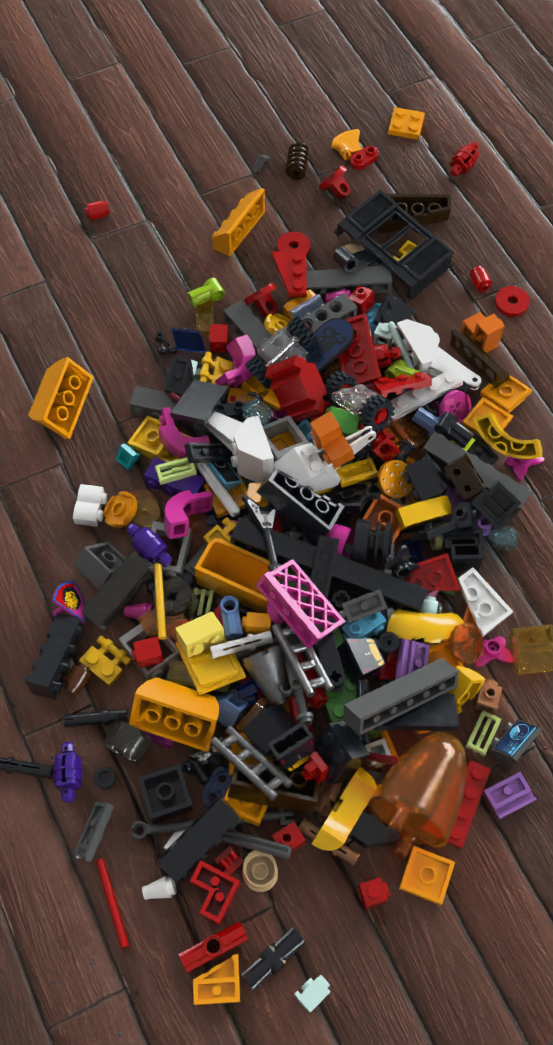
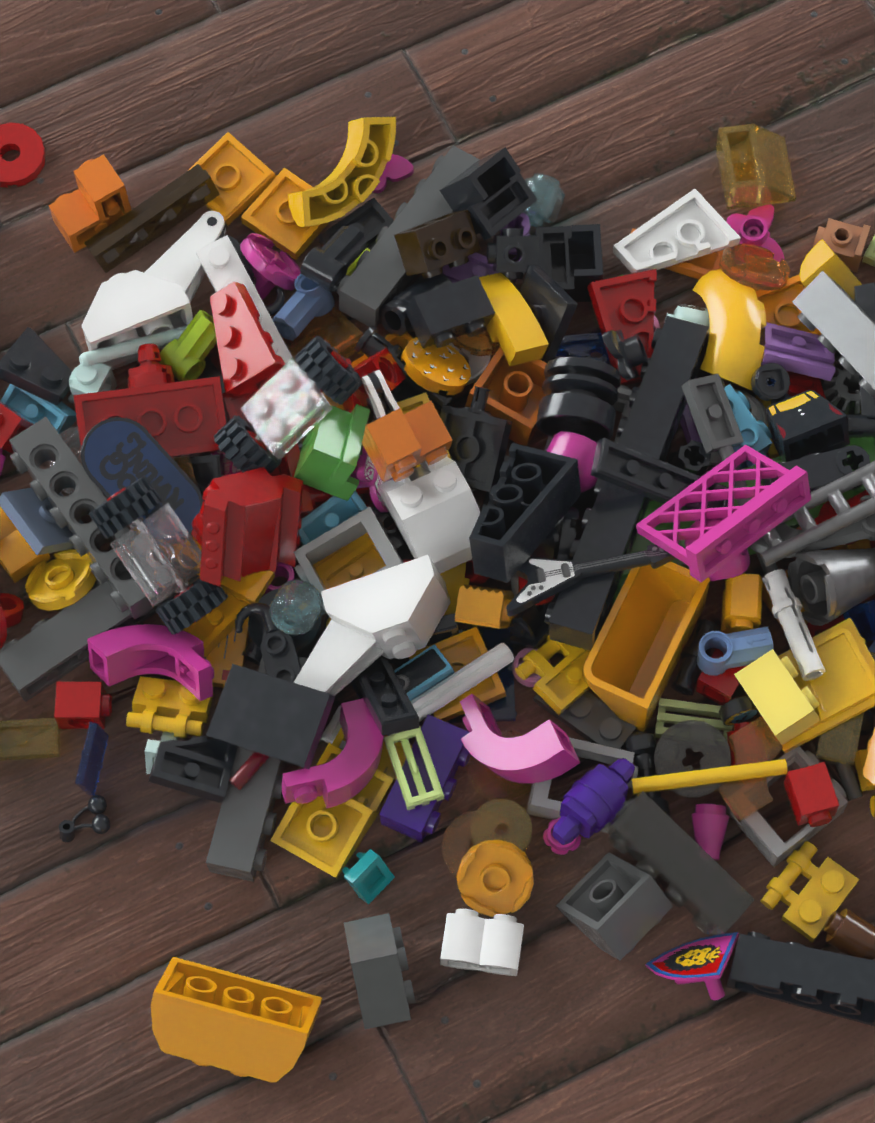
camera: 85 degrees left, 5 degrees up
(78, 454) = (377, 969): none -> dark grey brick

